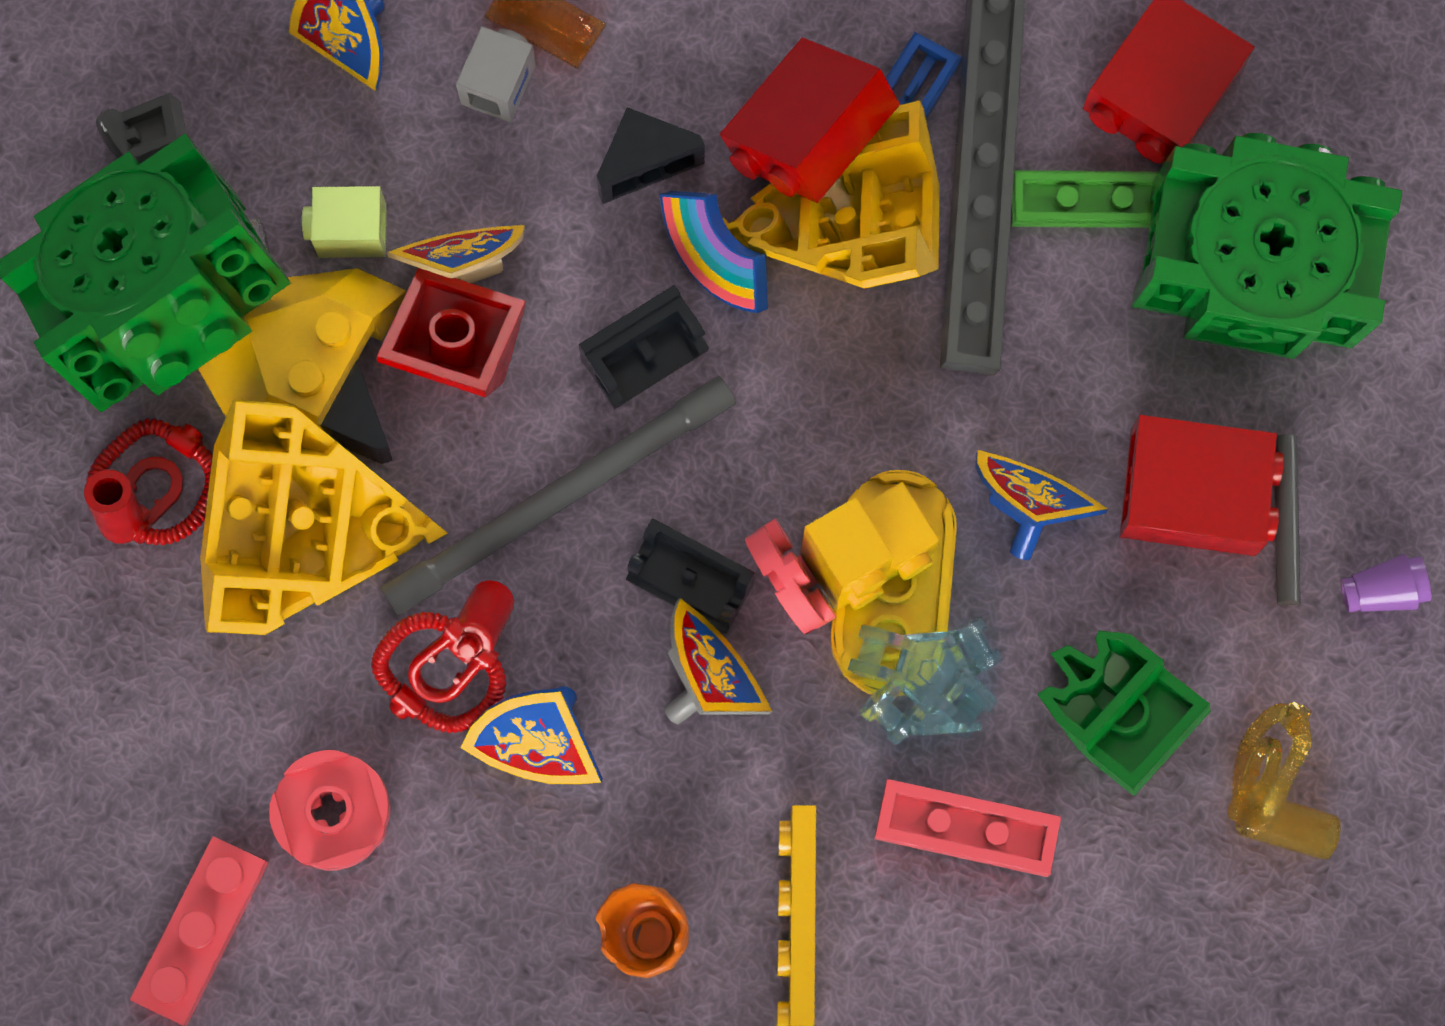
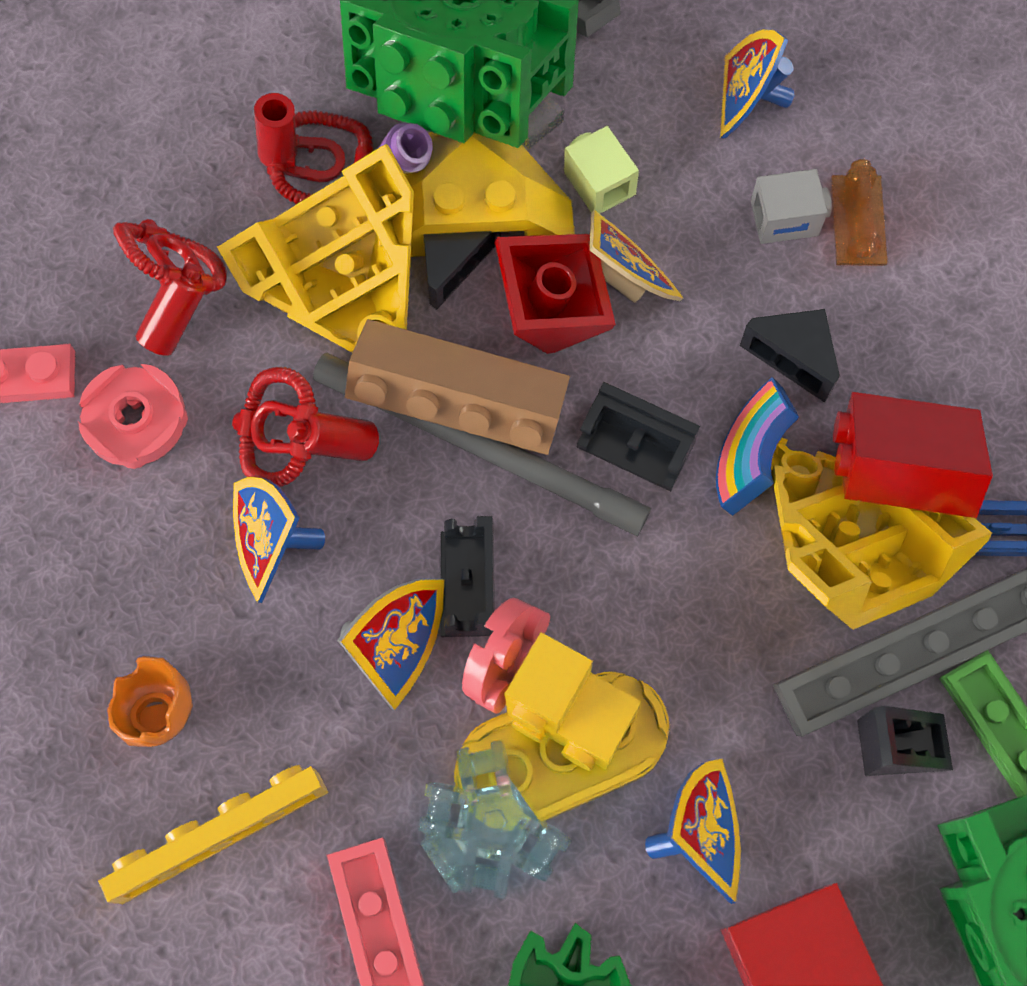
camera: 65 degrees right, 5 degrees down
(212, 394) = (410, 146): none -> medium lavender cone
(234, 688) = (180, 287): none -> red piece
(500, 481) = (456, 386): none -> medium nougat brick
(1050, 290) = (903, 741): none -> black slope

